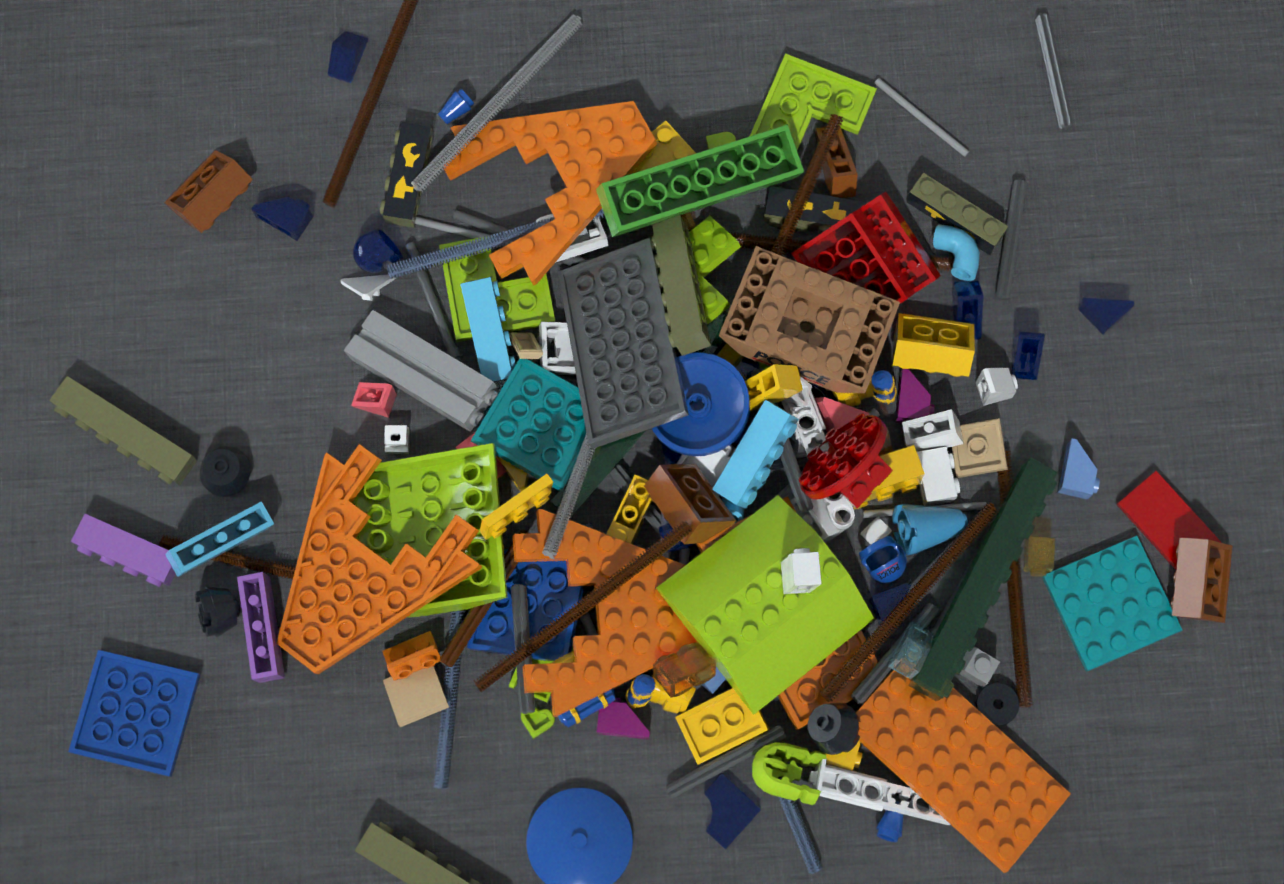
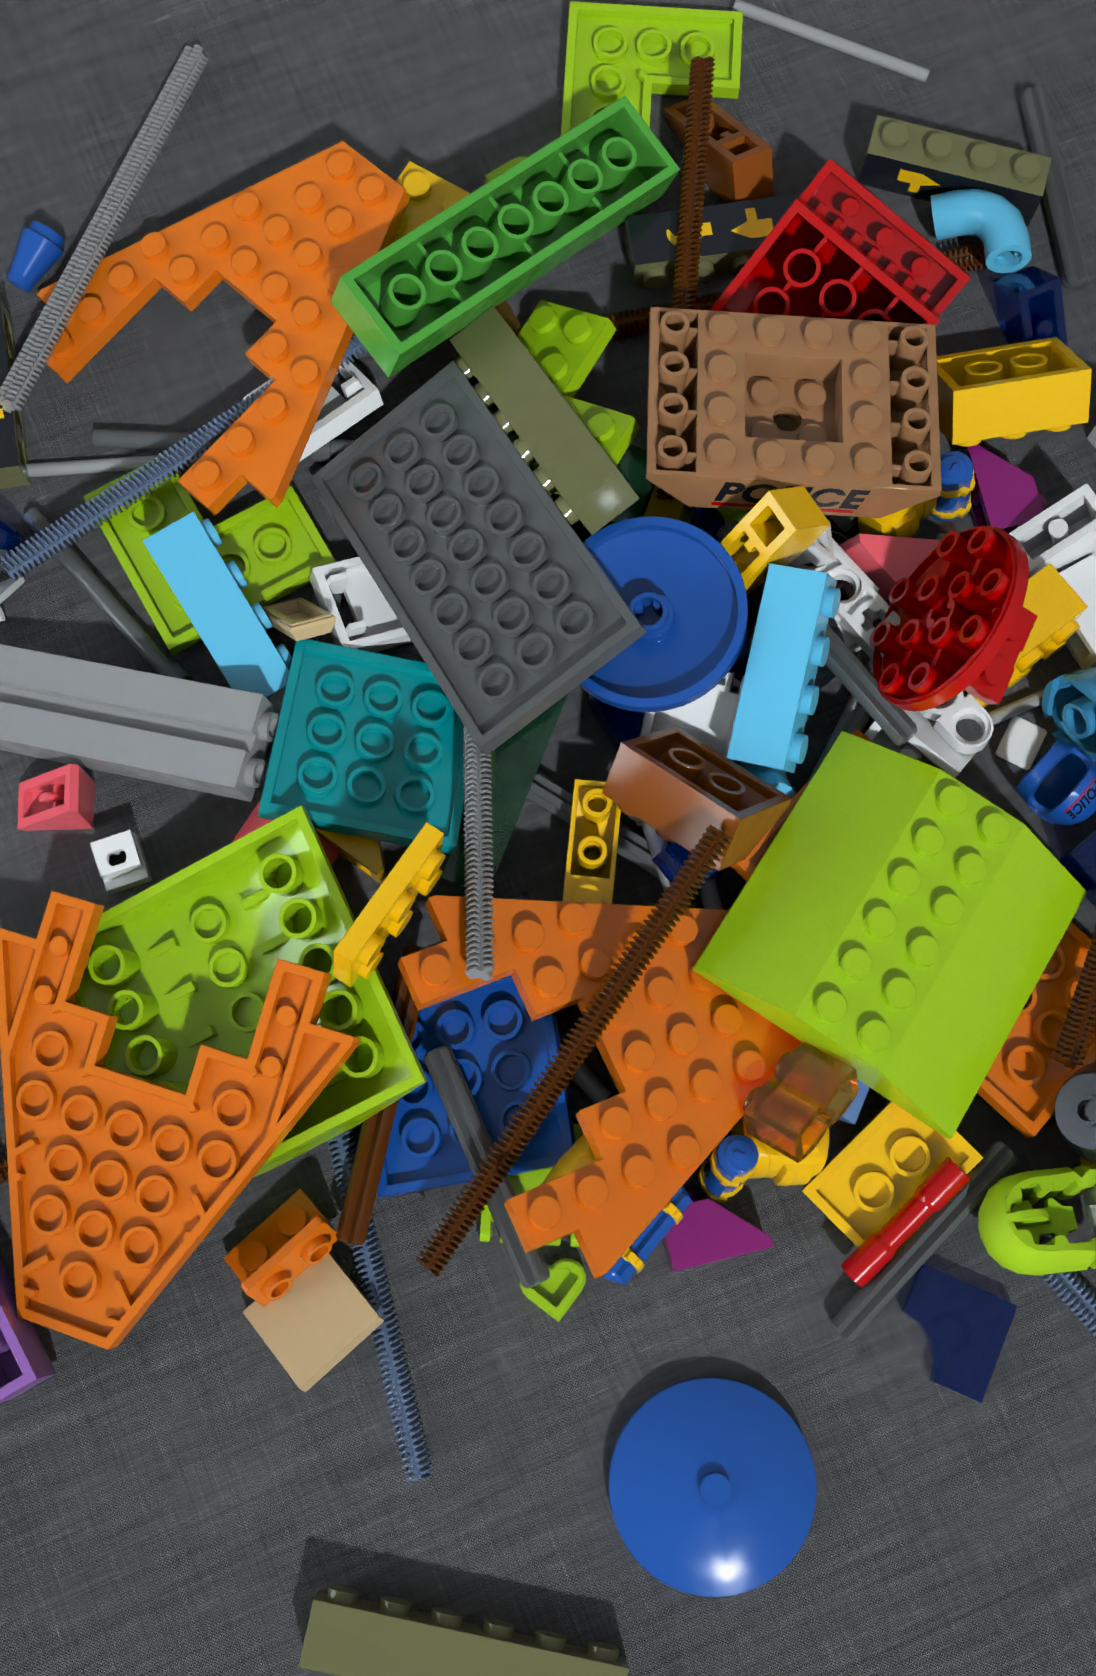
camera: 25 degrees left, 0 degrees up
(731, 741) = (928, 1199): none -> red piece
(801, 572) = (959, 846): white brick -> none

